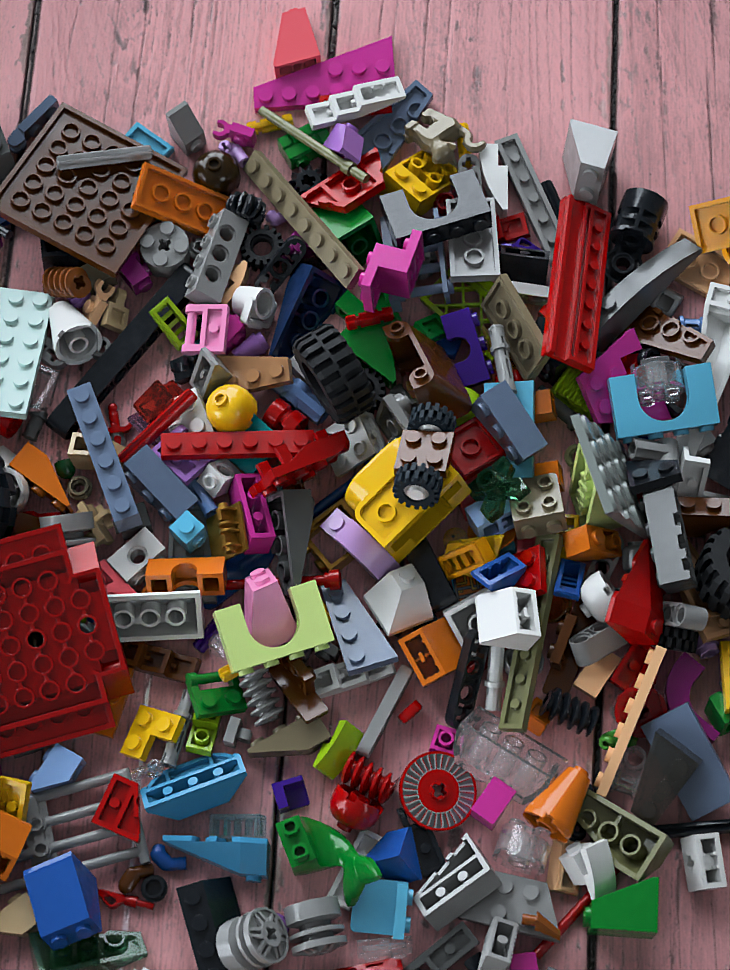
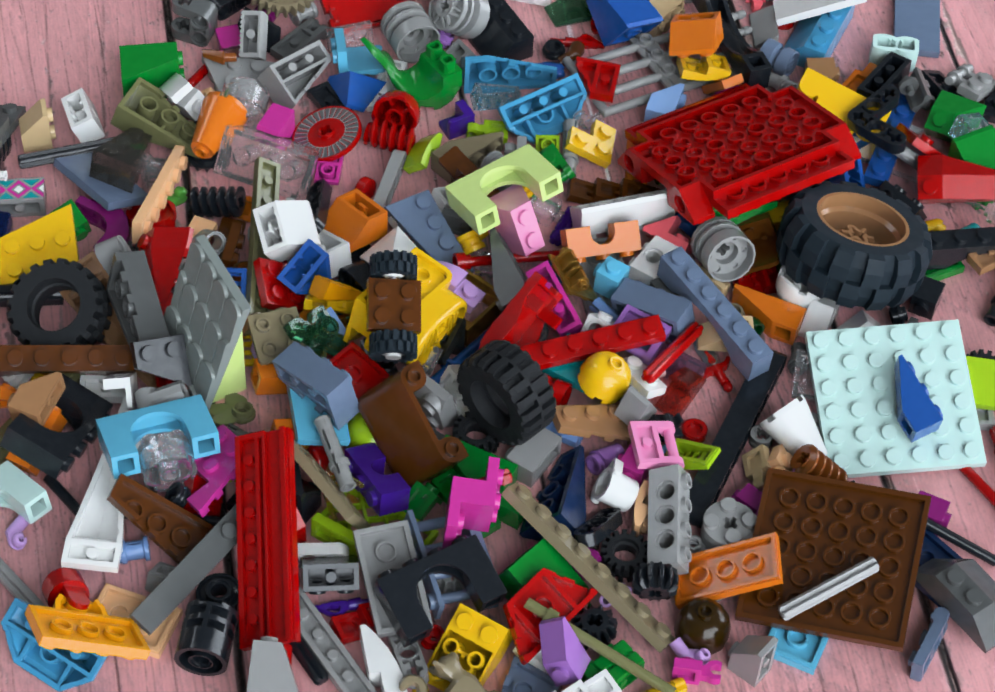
camera: 160 degrees right, 20 degrees down
(159, 367) = (694, 430): none -> red tile
(258, 770) = (489, 126): none -> lime plate
(262, 898) = (458, 50): none -> light grey slope

